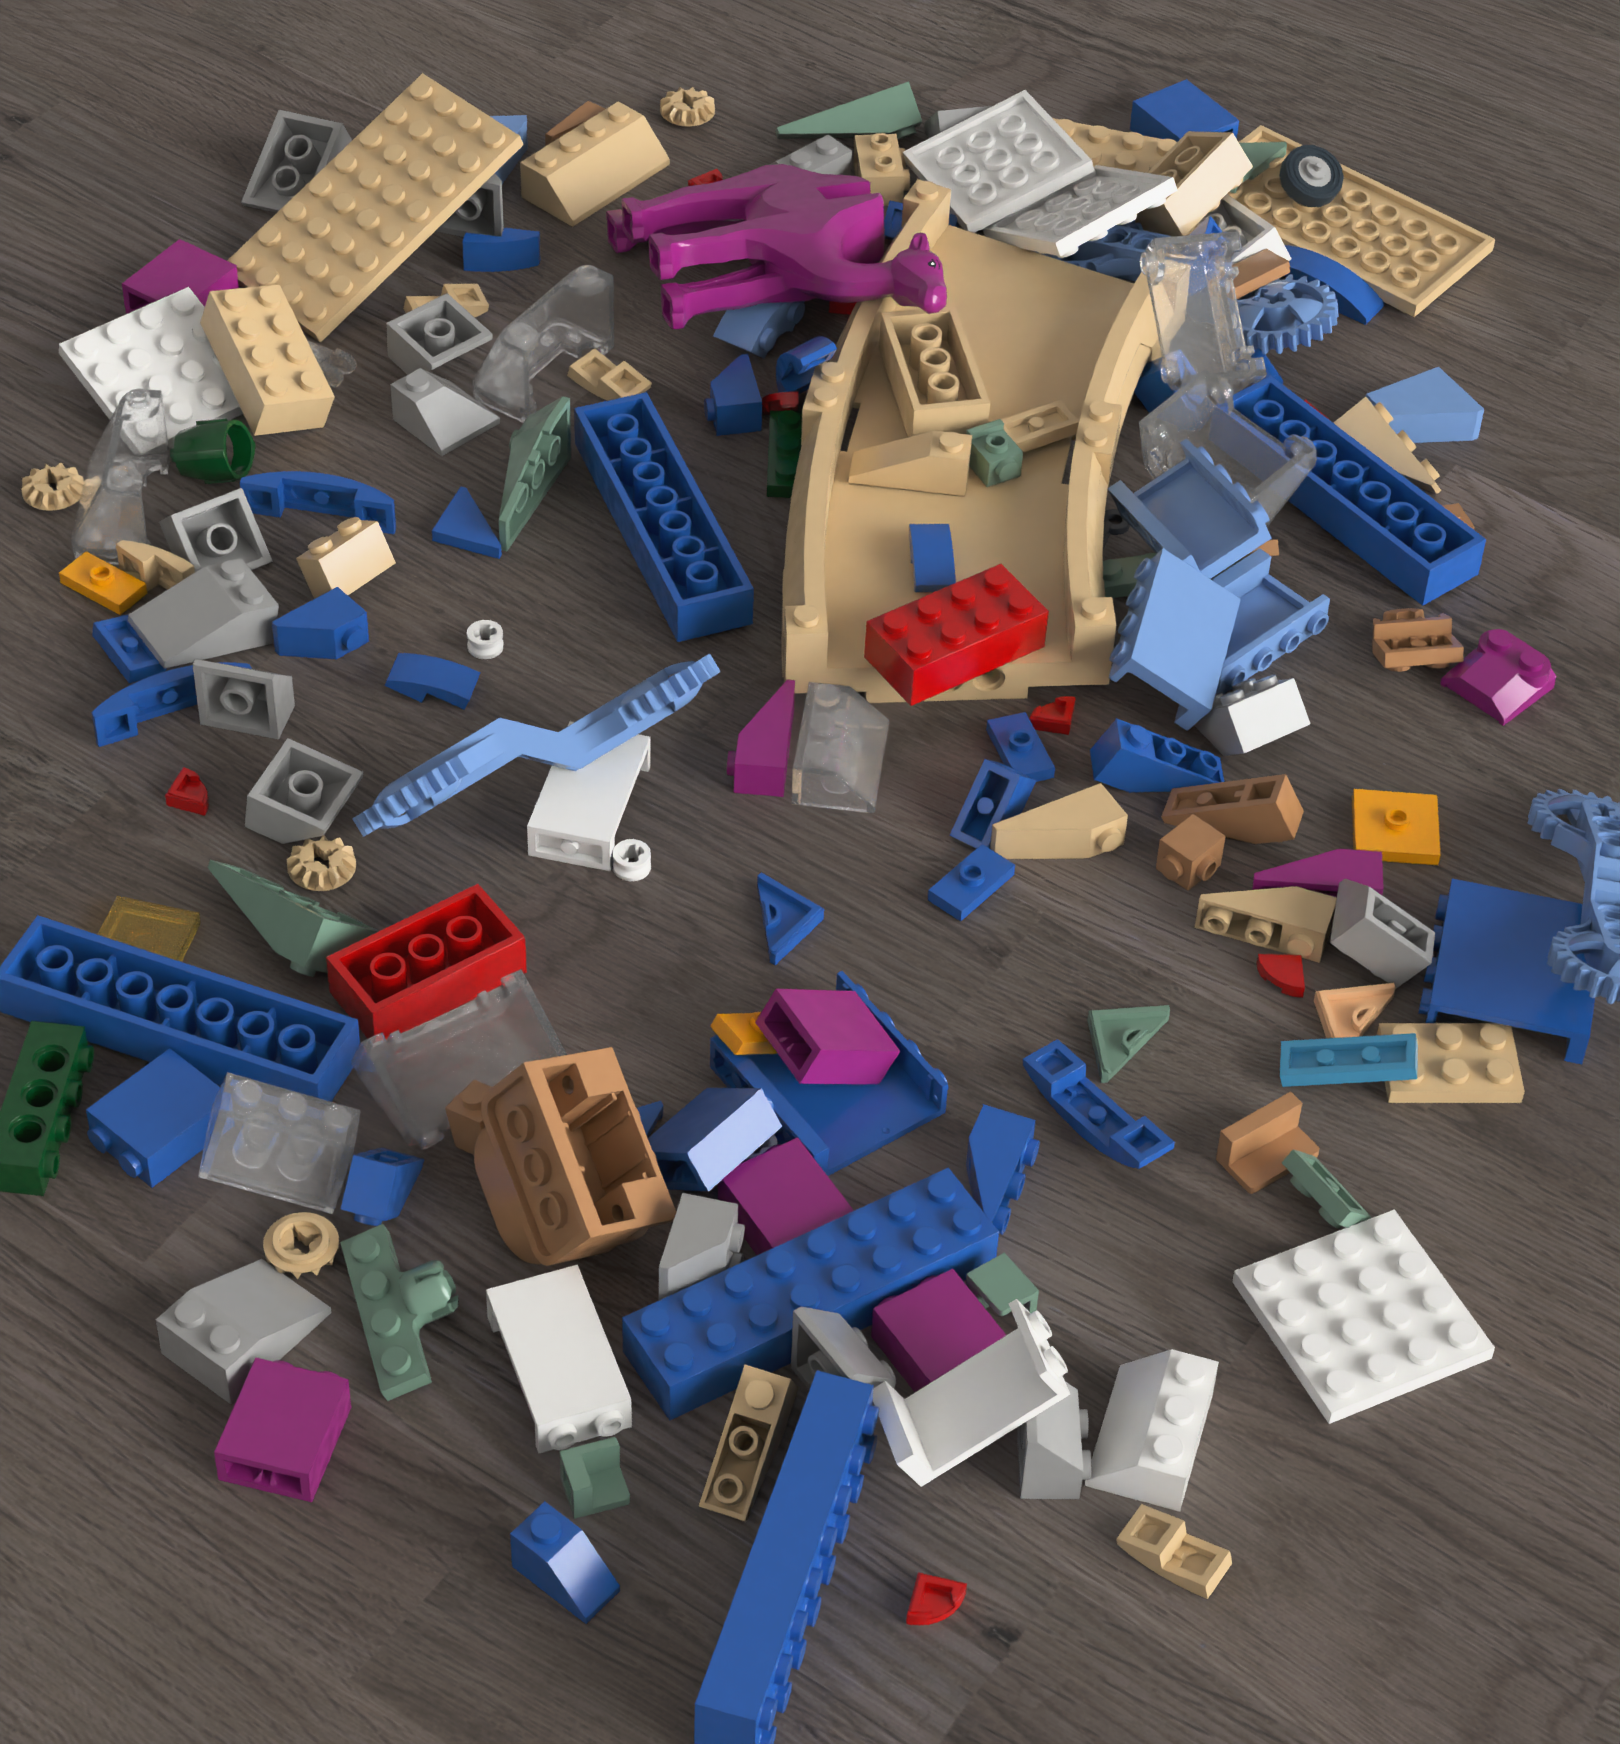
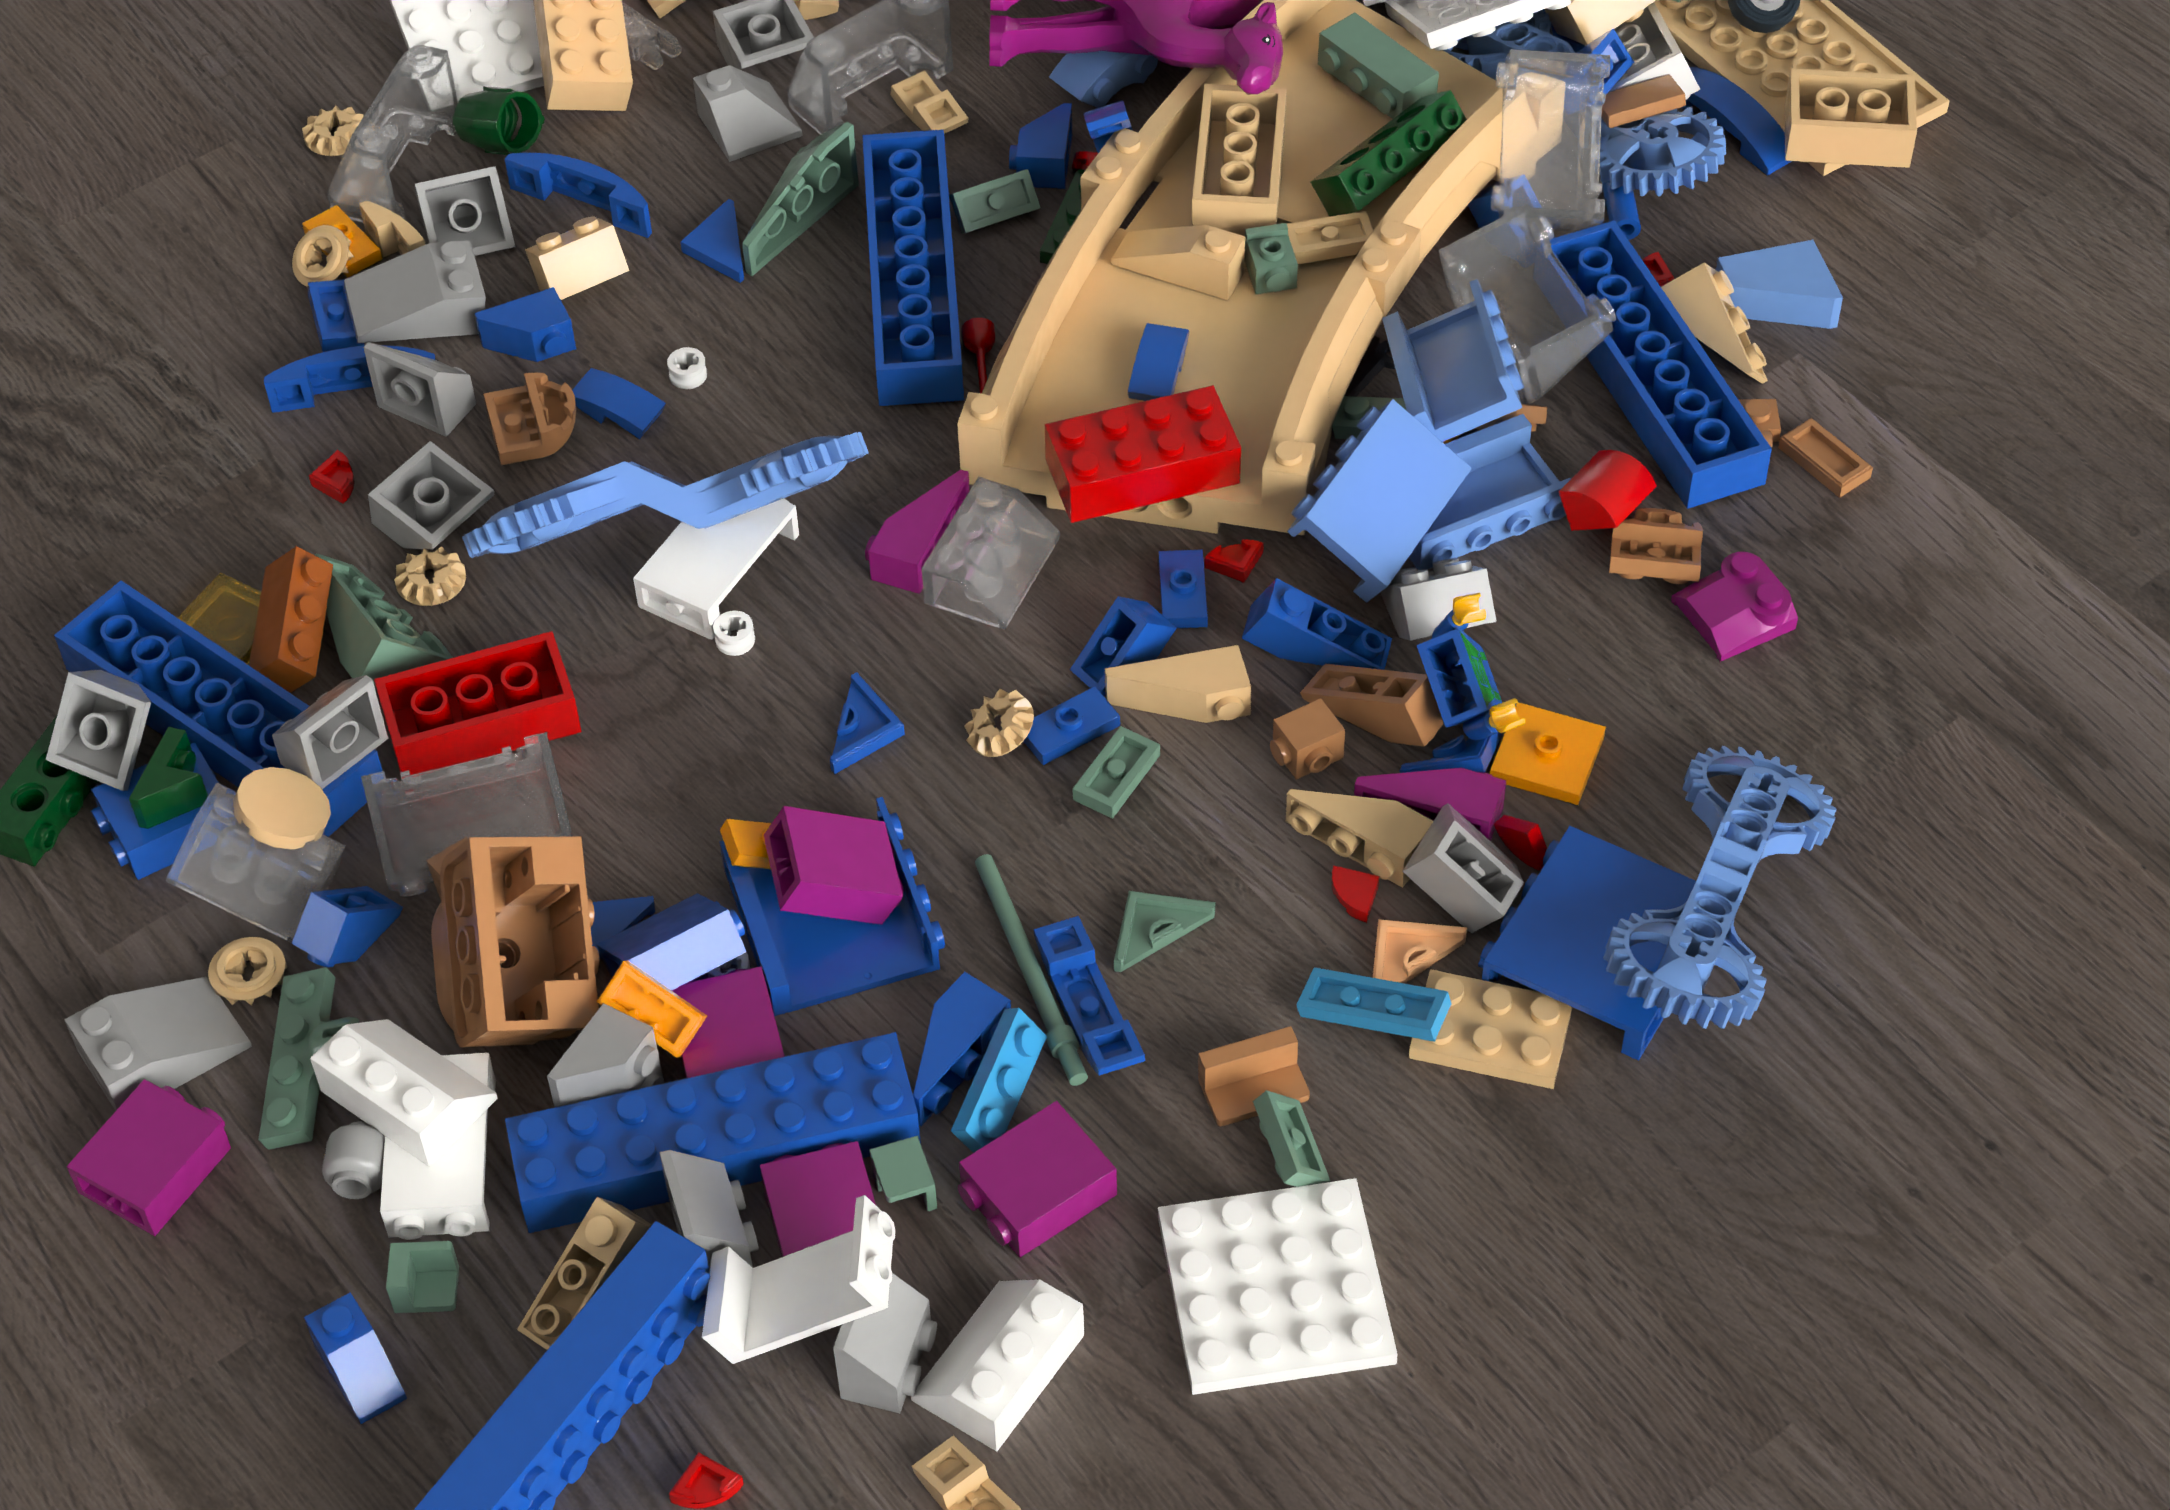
camera: 20 degrees right, 5 degrees up
(78, 601) = (308, 254): none -> tan gear
(82, 1050) = (99, 727): none -> light grey slope
(170, 1087) = (168, 782): none -> dark green slope
(214, 917) = (291, 618): none -> dark orange brick
(299, 1082) = (281, 807): none -> tan tile
(317, 1006) = (333, 732): none -> light grey slope
(360, 706) = (531, 418): none -> medium nougat slope
(488, 1388) = (354, 1160): none -> light grey head
(513, 1312) = (400, 1087): none -> white slope
(713, 447) = (994, 201): none -> sand green plate
(720, 1182) = (651, 1002): none -> light orange plate
(752, 567) = (978, 338): none -> red hinge
(907, 907) = (1016, 720): none -> tan gear
(1015, 280) = (1375, 65): none -> sand green brick
(1033, 912) = (1116, 772): none -> sand green plate
(1051, 1195) = (999, 1080): none -> dark azure plate
(1061, 349) = (1389, 154): none -> dark green brick
(1082, 1145) = (1060, 1037): none -> sand green bar
(1120, 1269) = (1037, 1179): none -> magenta brick
(1312, 772) = (1463, 676): none -> blue torso
(1334, 836) = (1458, 754): none -> blue tile
(1357, 600) = (1605, 491): none -> red brick
(1413, 899) = (1523, 840): none -> red tile
(1429, 262) = (1850, 117): none -> tan brick
(1519, 544) = (1825, 457): none -> medium nougat tile

